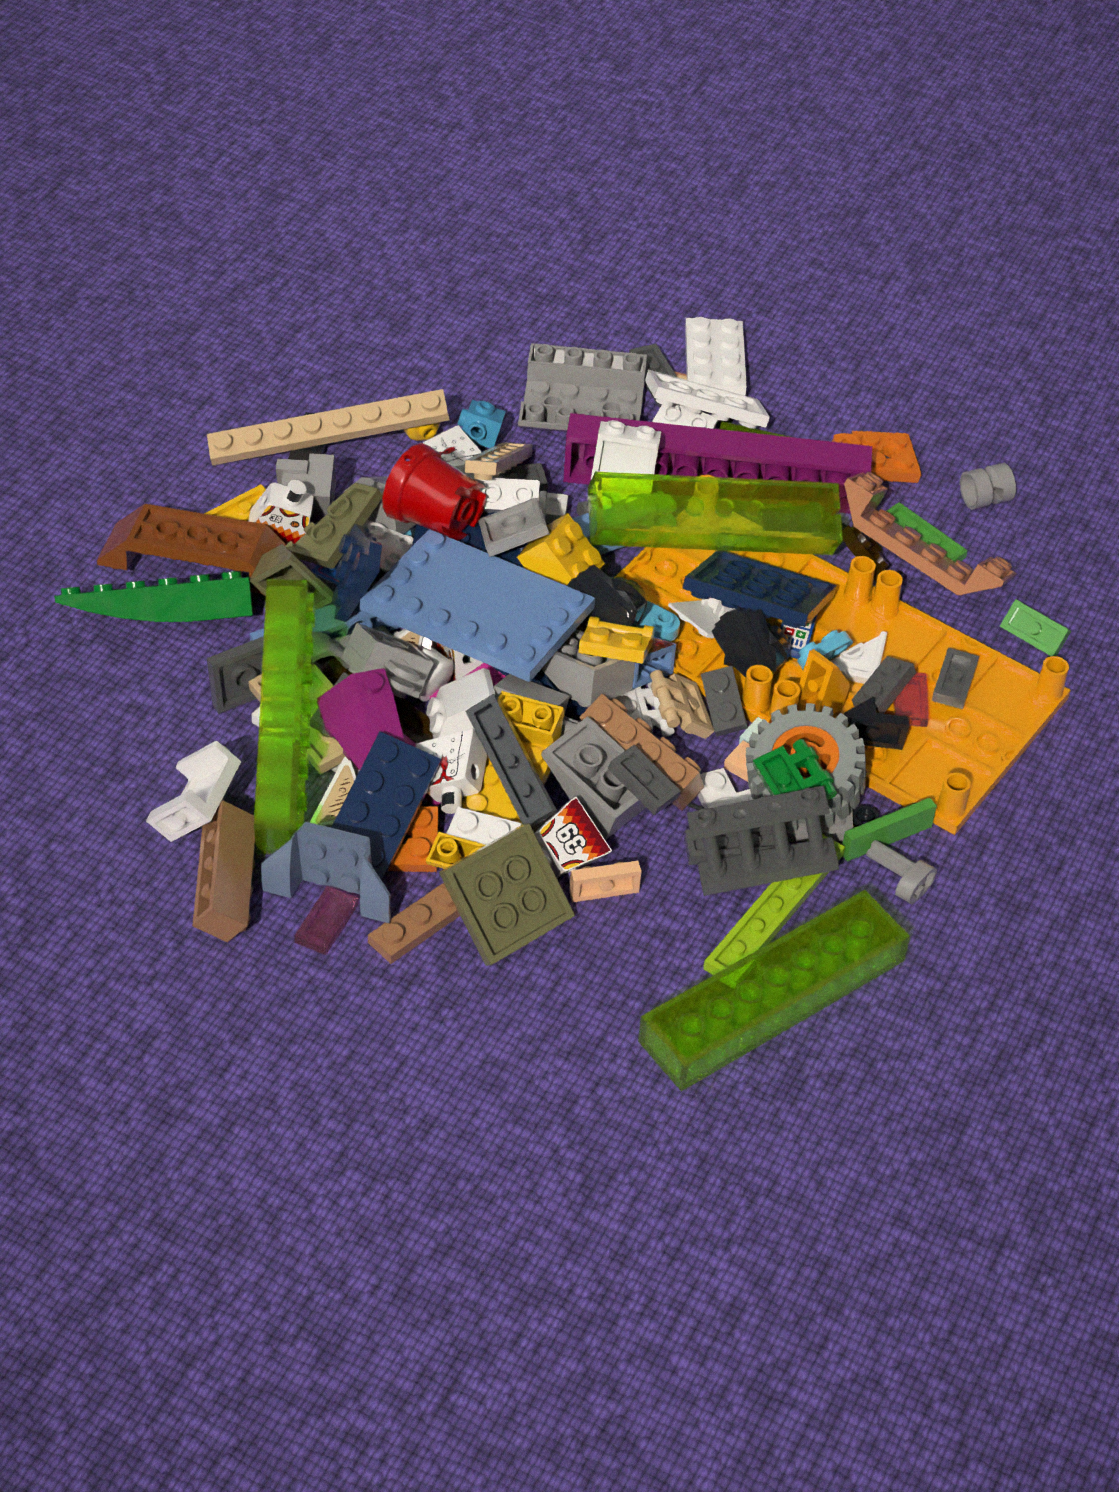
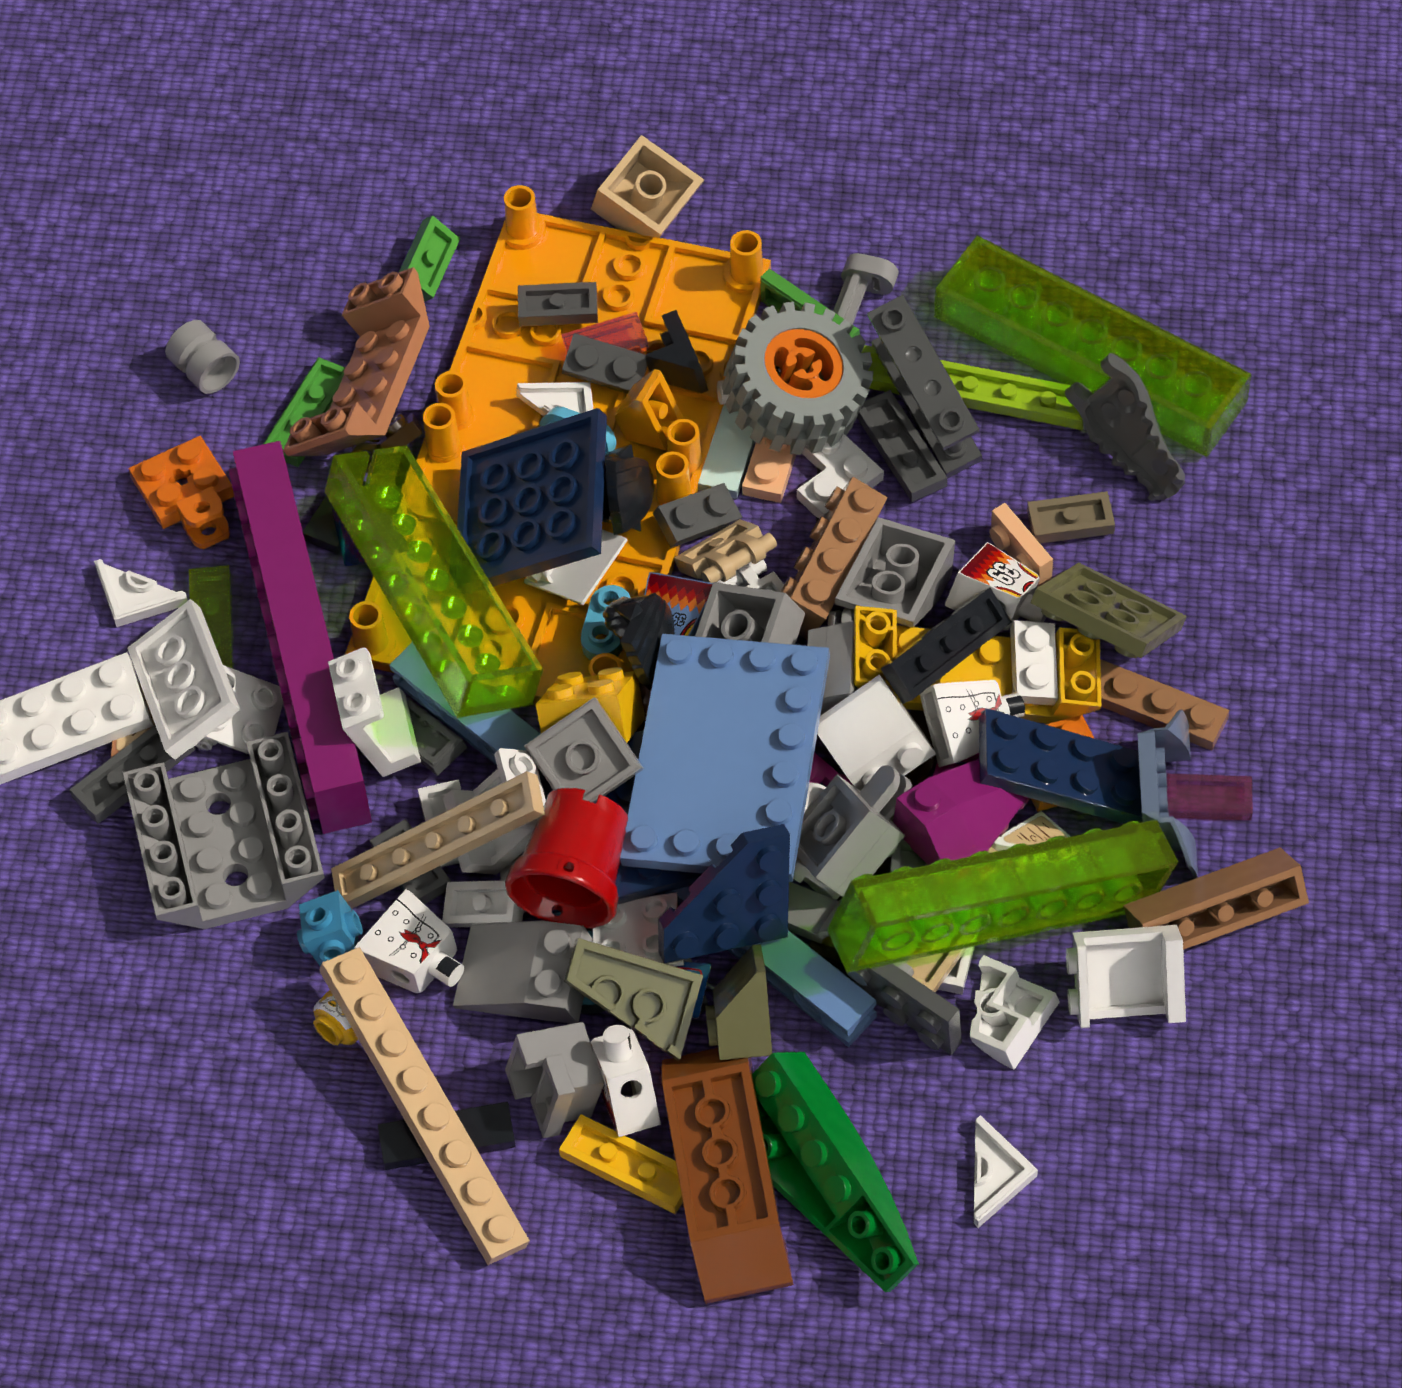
camera: 105 degrees left, 10 degrees up
(112, 695) = (998, 1171): none -> white tile
(211, 724) = (1008, 1012): none -> white slope
(616, 640) = (716, 599): yellow plate -> none
(618, 924) = (1071, 517): none -> dark tan plate
(644, 780) = (897, 518): dark grey plate -> none
(679, 976) = (1126, 427): none -> dark grey animal
(781, 772) = (855, 368): green plate -> none
(803, 414) = (134, 595): none -> white tile
(1051, 760) = (645, 190): none -> tan slope

